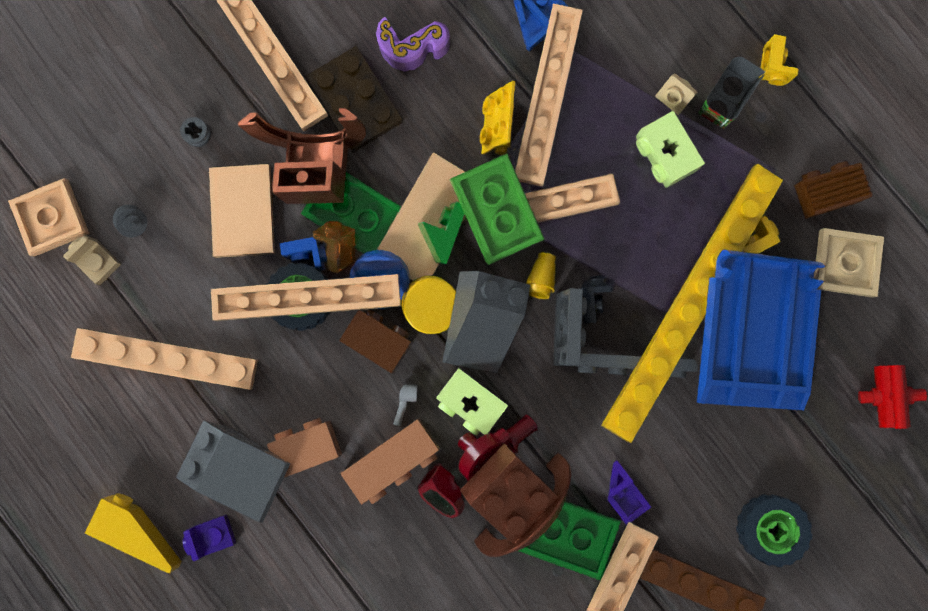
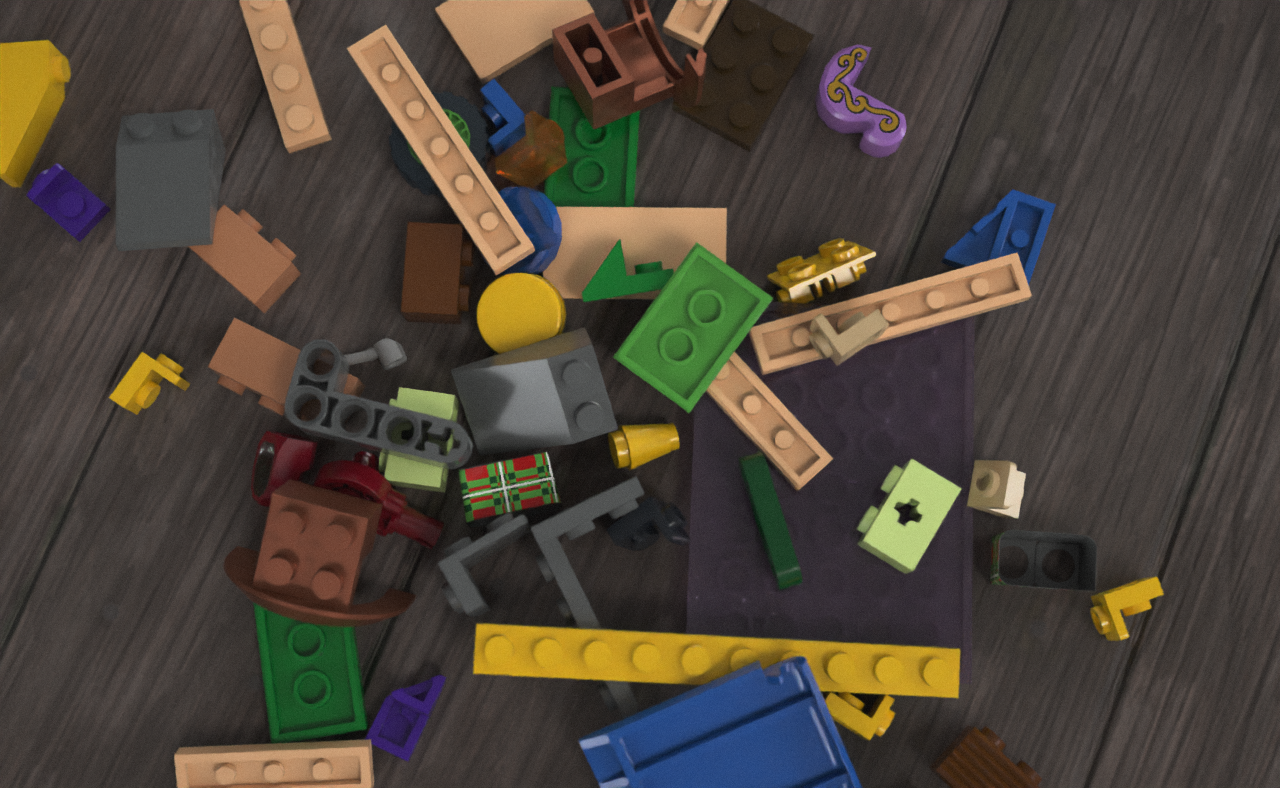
camera: 60 degrees right, 5 degrees down
(348, 550) = (141, 383): none -> yellow bracket
(451, 417) = (382, 417): none -> dark grey beam
(529, 366) = (509, 486): none -> piece
(554, 119) = (855, 335): none -> tan bracket
(555, 414) = (461, 587): none -> dark grey bracket
(629, 227) = (770, 520): none -> dark green beam

